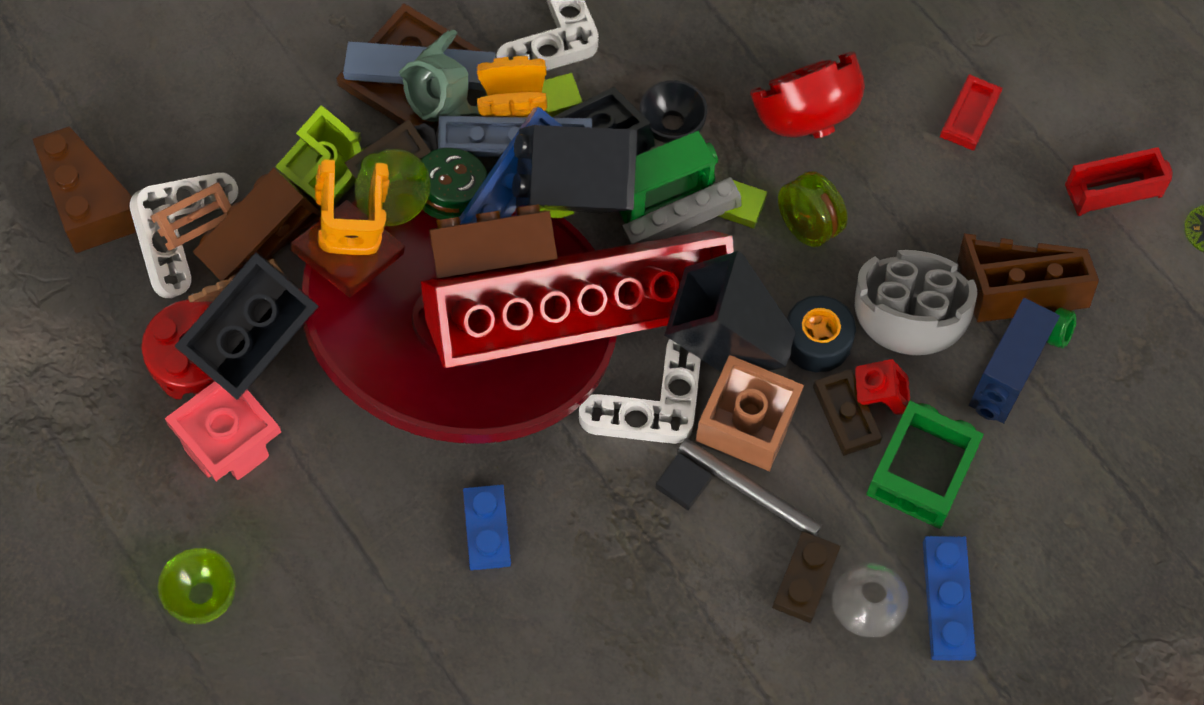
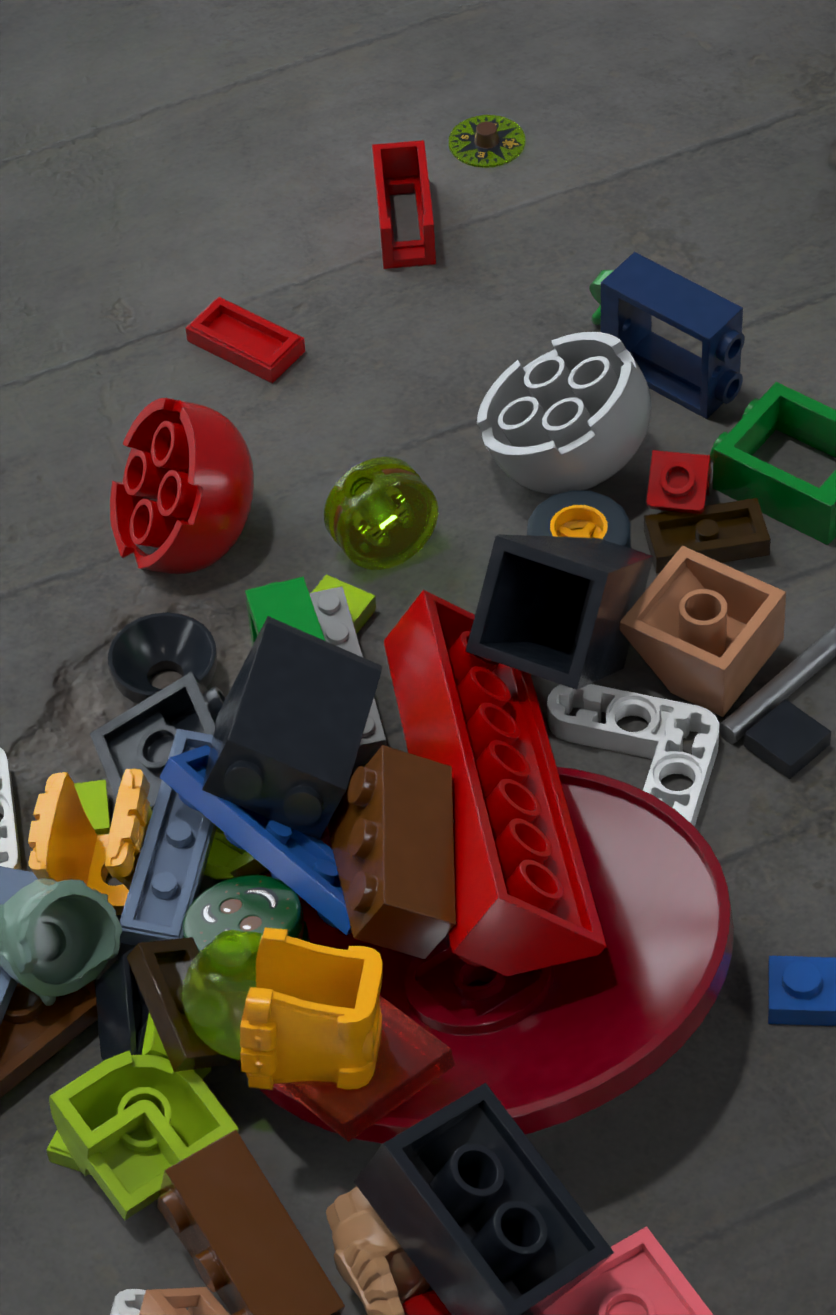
camera: 75 degrees left, 15 degrees down
(1009, 272) = (538, 302): reddish brown wedge -> none

